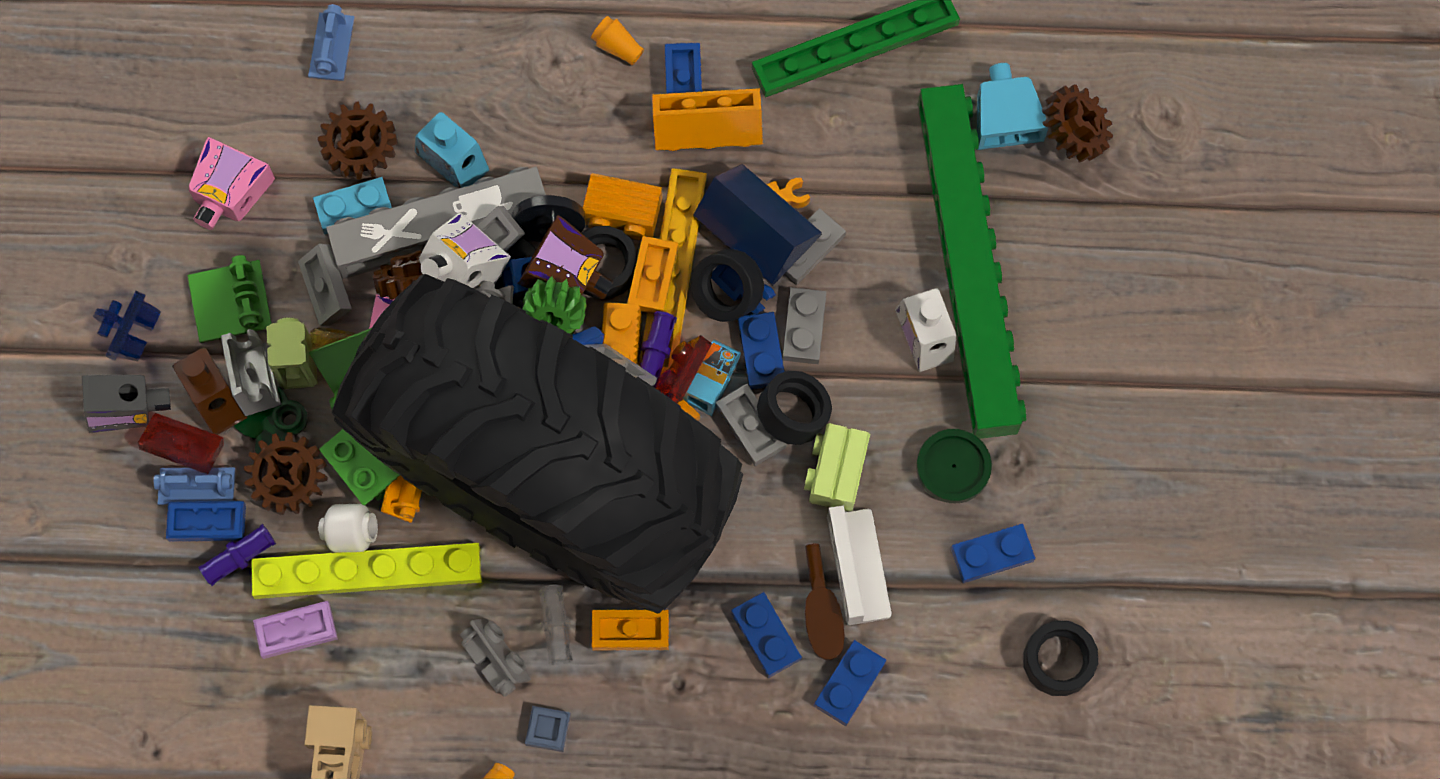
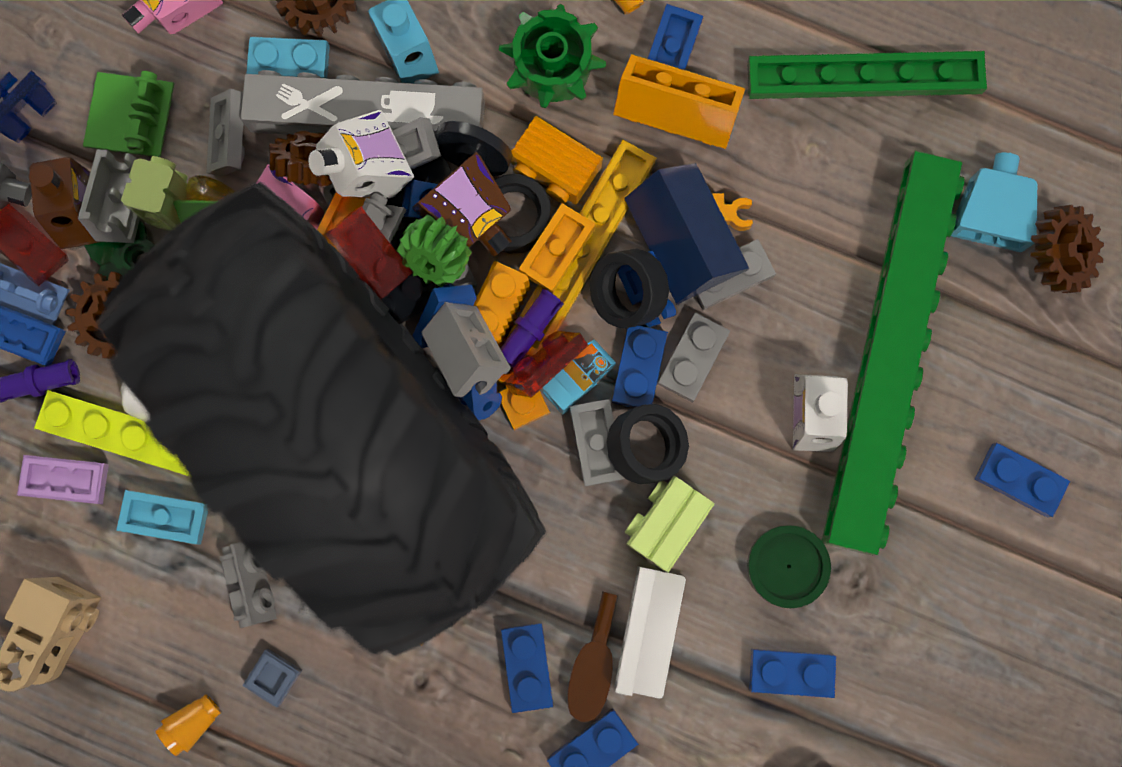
camera: 25 degrees right, 10 degrees up
(397, 627) = (162, 517): none -> medium azure plate
(579, 138) = (550, 34): none -> green brick
(1119, 324) = (1022, 480): none -> blue plate

